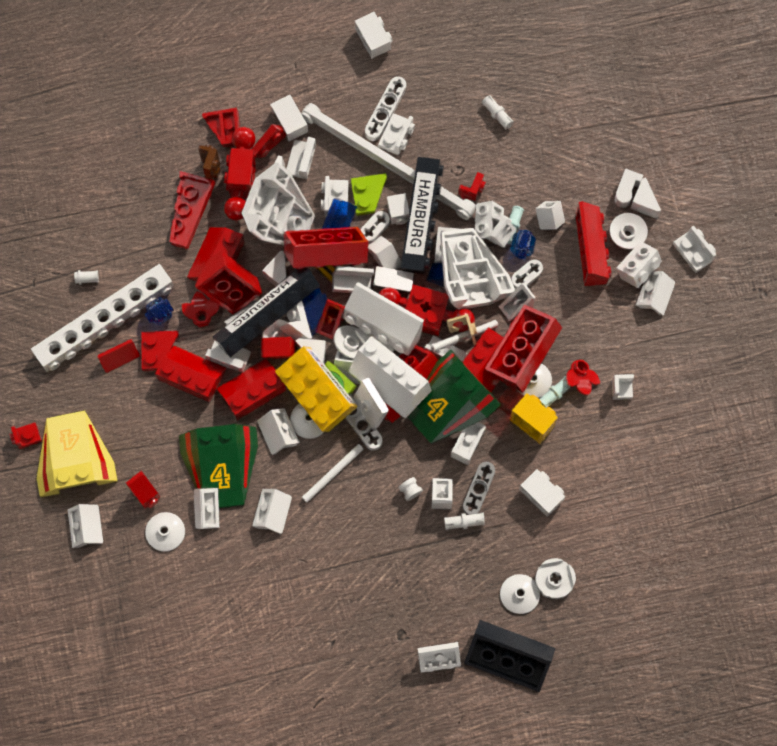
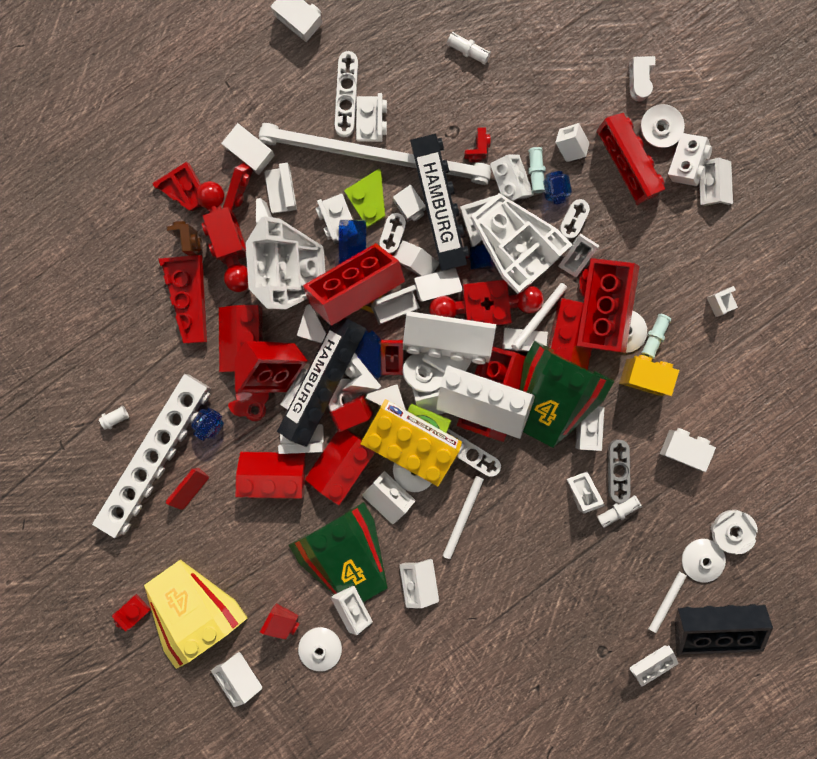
camera: 25 degrees left, 15 degrees up
(155, 347) = (222, 462): red wing -> none
(370, 403) = (476, 435): white plate -> none
(410, 489) = (551, 502): white wheel -> none
(465, 319) = (548, 309): tan bracket -> none
(474, 615) = (667, 602): none -> white bar
(503, 230) = (533, 184): white bracket -> none
(509, 400) = (615, 366): clear red panel -> none
(581, 377) = (677, 308): red plate -> none
(645, 200) = (666, 82): white slope -> none
(695, 249) = (739, 116): white bracket -> none

